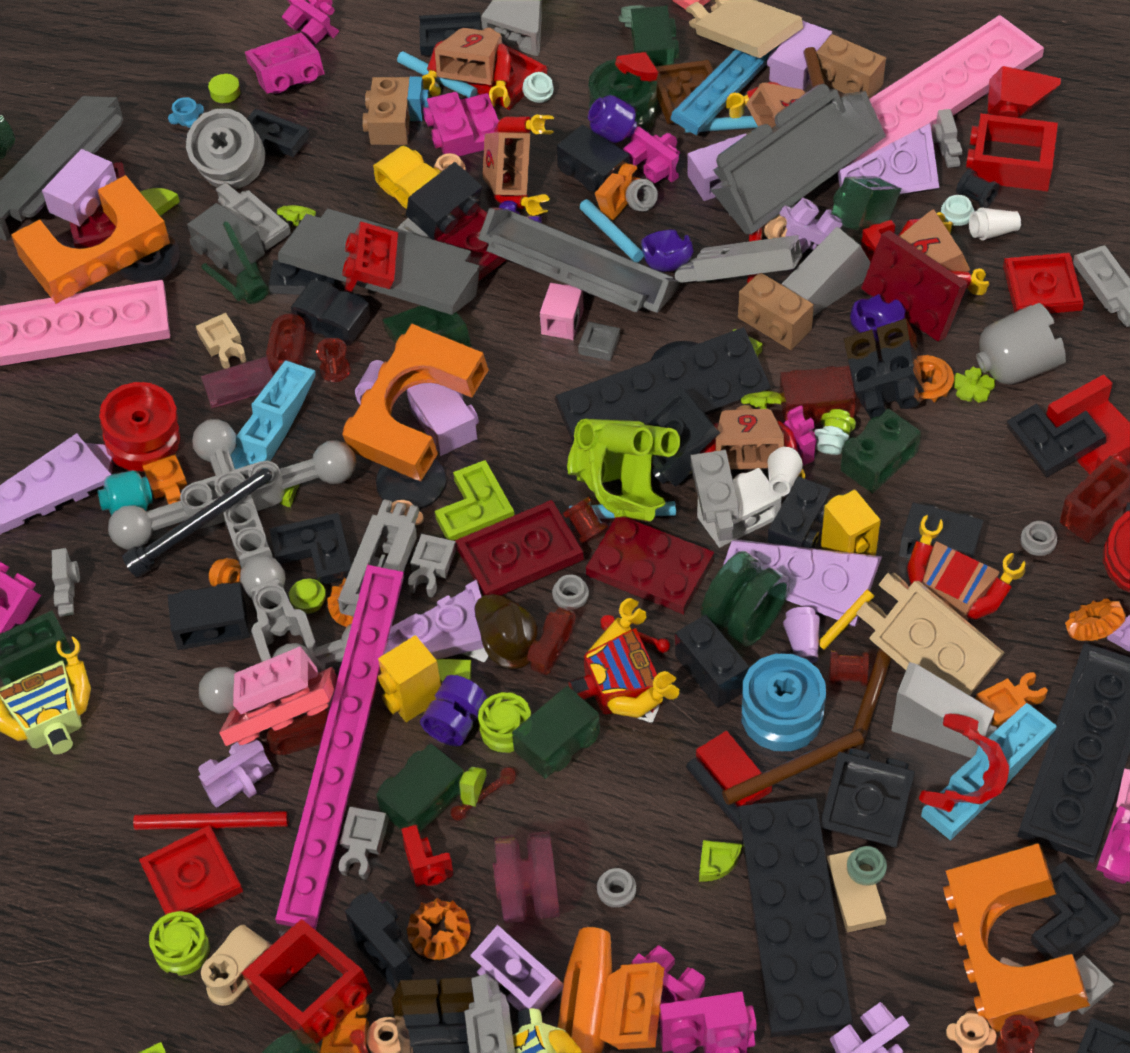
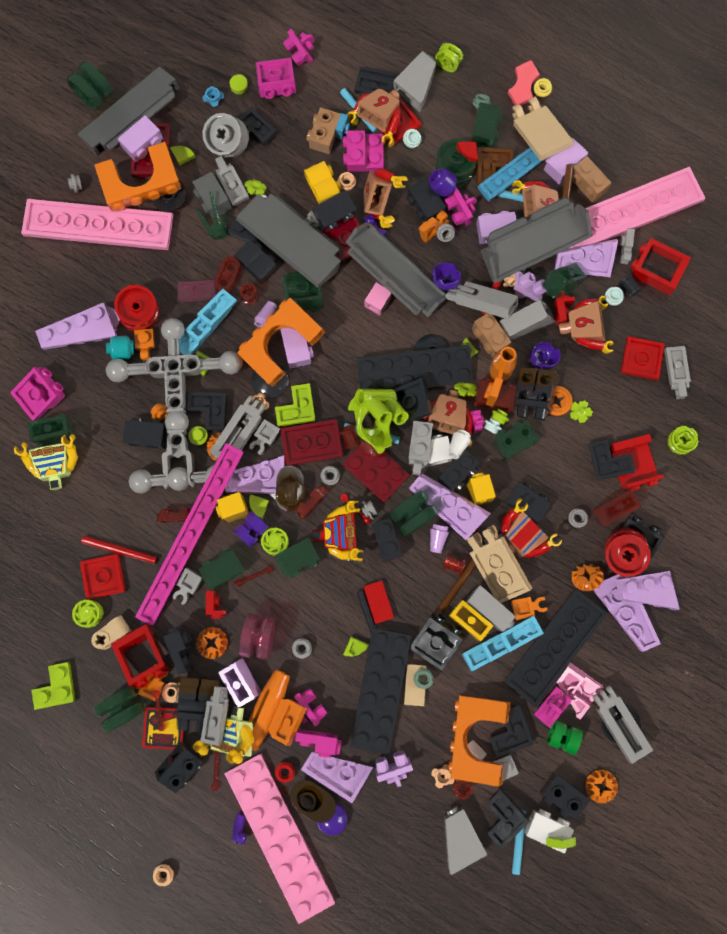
camera: 15 degrees right, 25 degrees up
(64, 576) = (78, 389): light grey plate -> none
(140, 559) = (120, 389): black piece -> none
(221, 338) = (194, 259): tan plate -> none
(235, 773) = (137, 531): lavender hips -> none
(272, 679) = (162, 493): bright pink bracket -> none
(280, 713) = (164, 505): coral plate -> none
(370, 256) = (283, 239): red bracket -> none
(471, 785) = (247, 574): lime tile -> none
(599, 341) = (393, 322): dark grey tile -> none
(611, 230) = (421, 251): medium azure bar -> none
(661, 623) = (369, 509): none -> light grey plate
(783, 702) = (425, 575): dark azure wheel -> none
(792, 767) = (407, 613): reddish brown bar -> none
(812, 333) = (500, 370): none -> orange plate
(844, 620) = (461, 537): yellow piece -> none
(915, 740) = (470, 620): none -> yellow brick
(920, 283) = (573, 347): dark red plate -> none
(990, 223) = (630, 311): white cone -> none
(994, 778) = (501, 653): red helmet -> none
(1018, 91) = (677, 227): red slope -> none
(1020, 346) = (612, 401): light grey cylinder -> none

